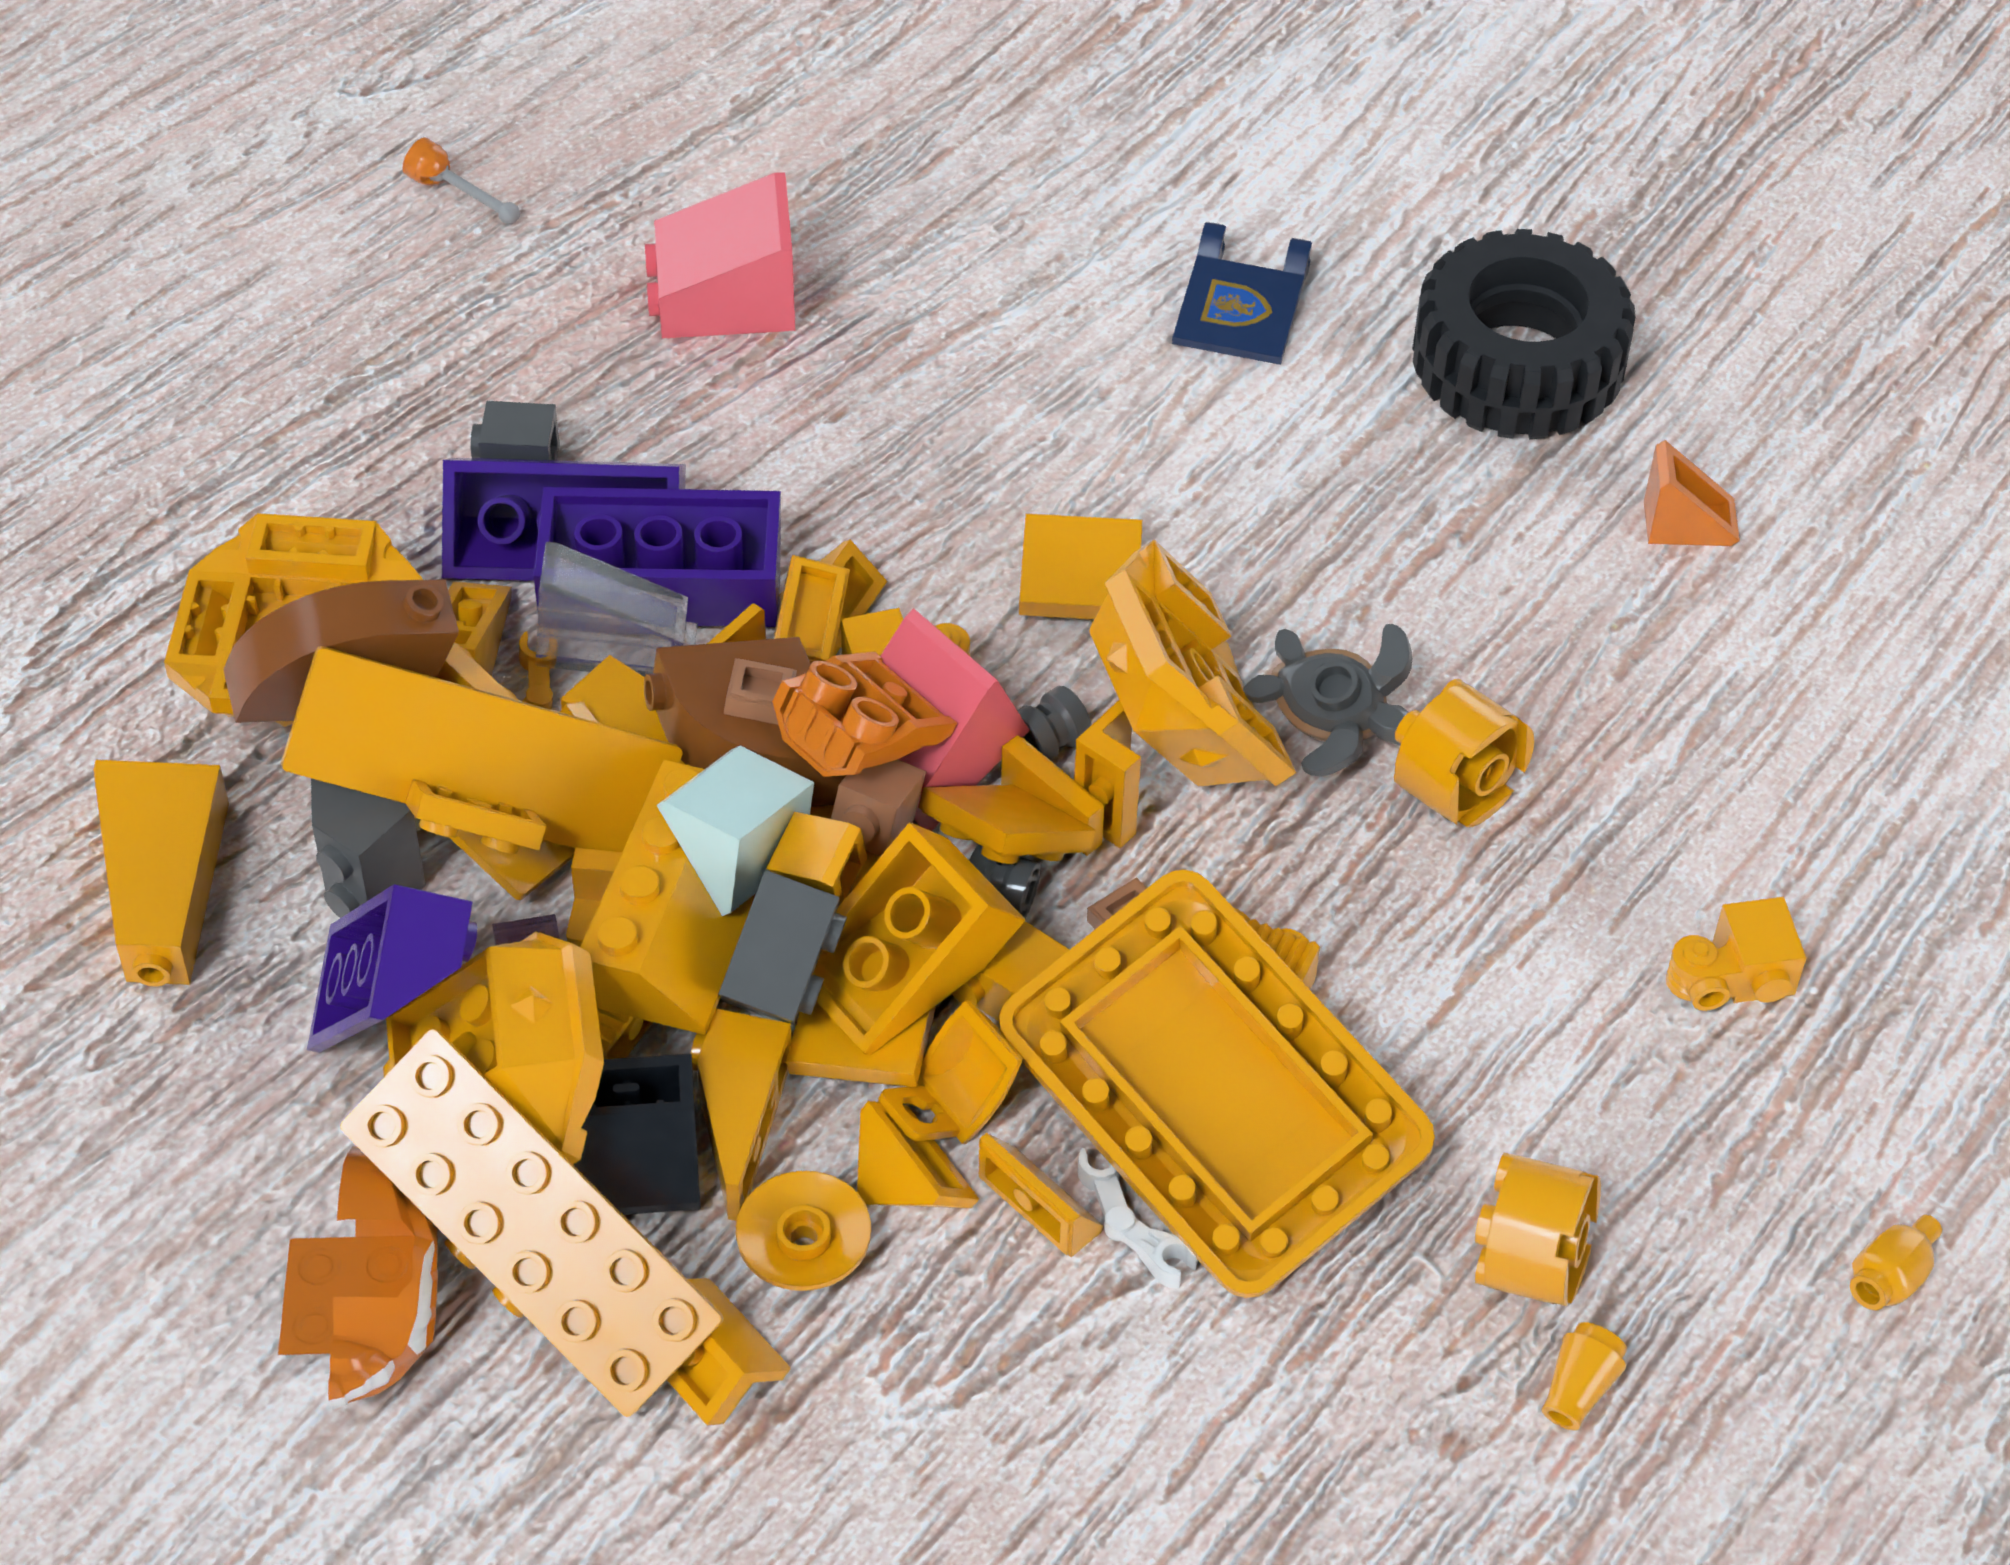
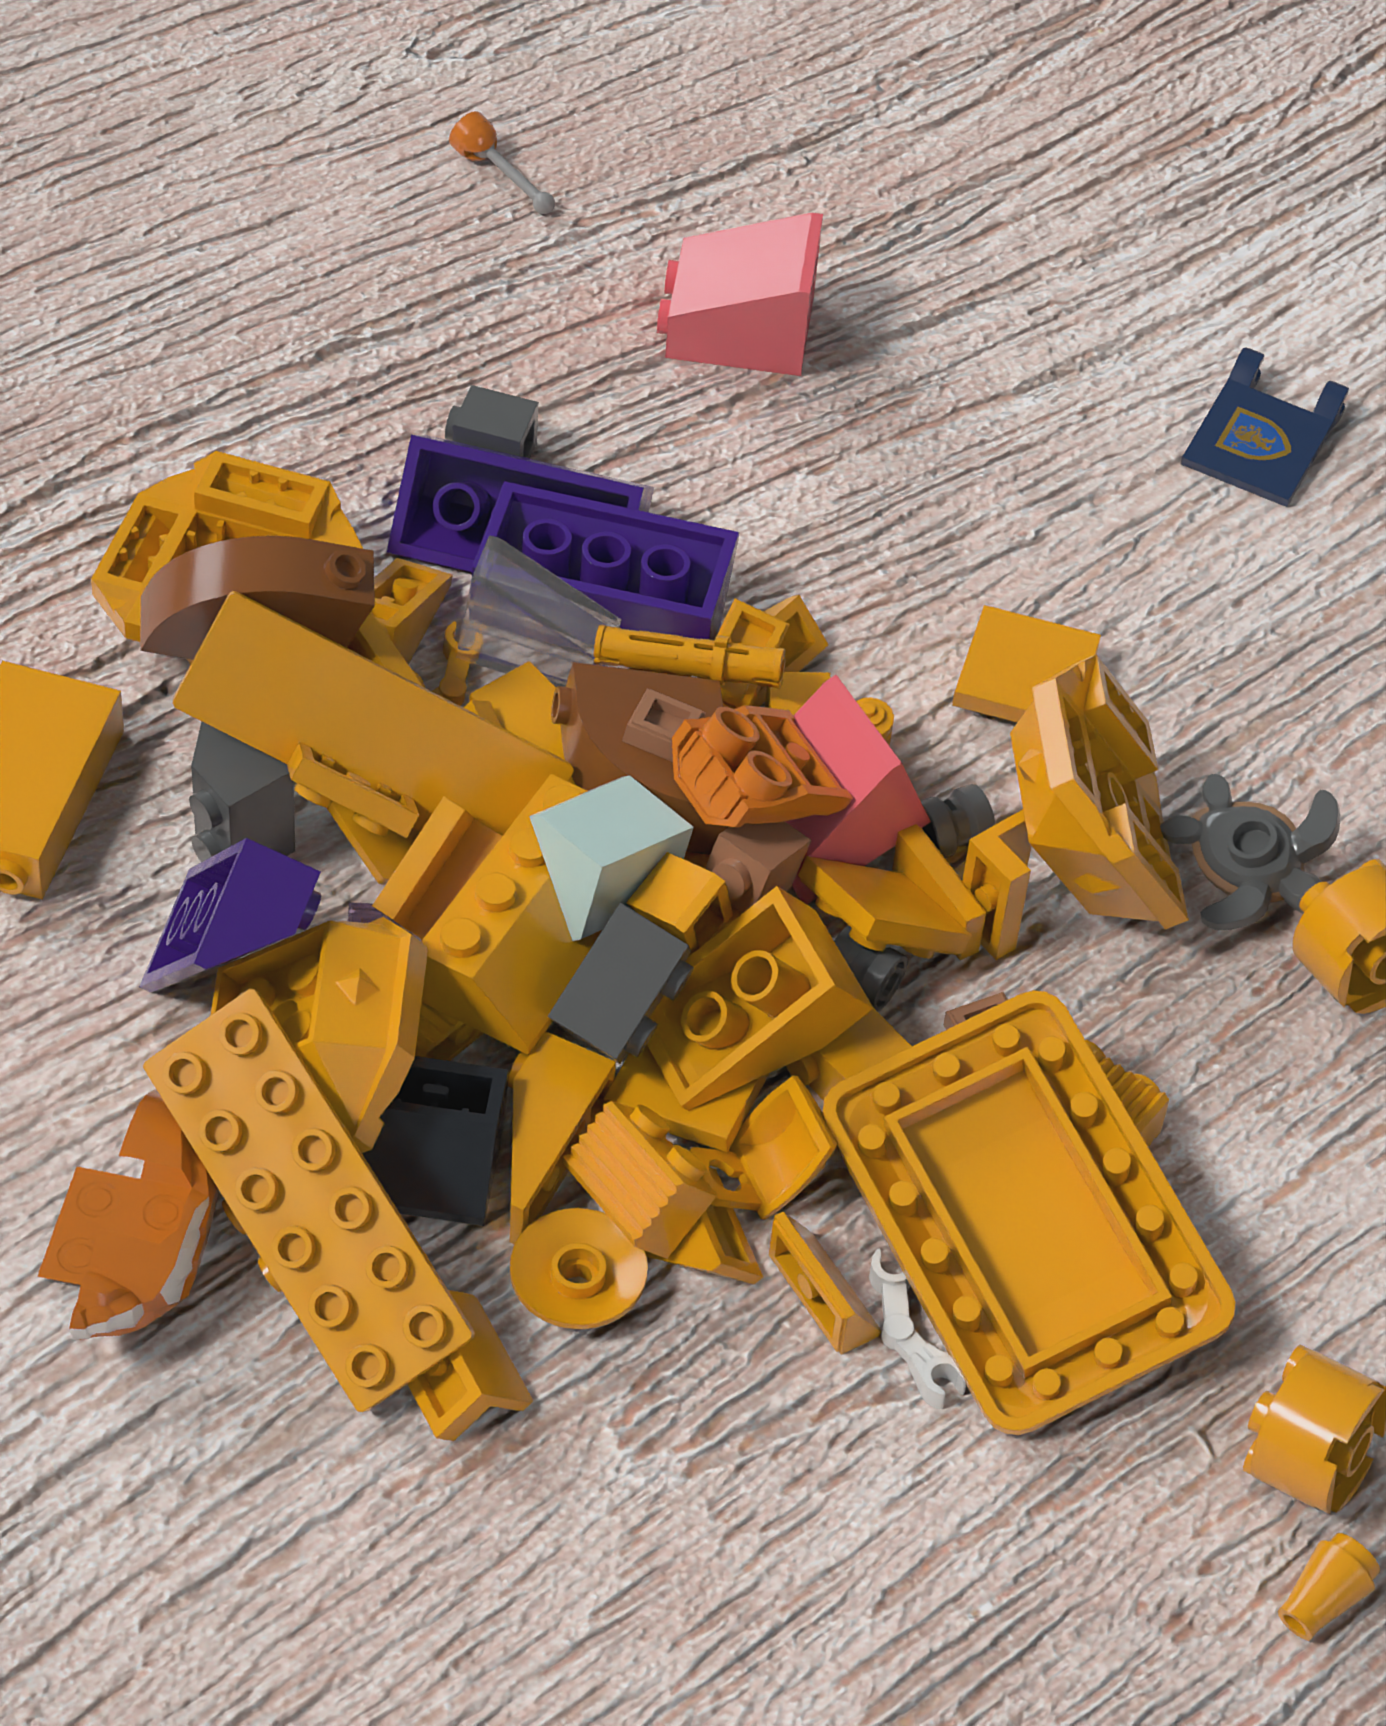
camera: 10 degrees right, 0 degrees up
(574, 875) = (435, 868): none -> light orange panel
(764, 619) = (690, 656): none -> light orange pin
(842, 1129) = (640, 1177): none -> light orange brick

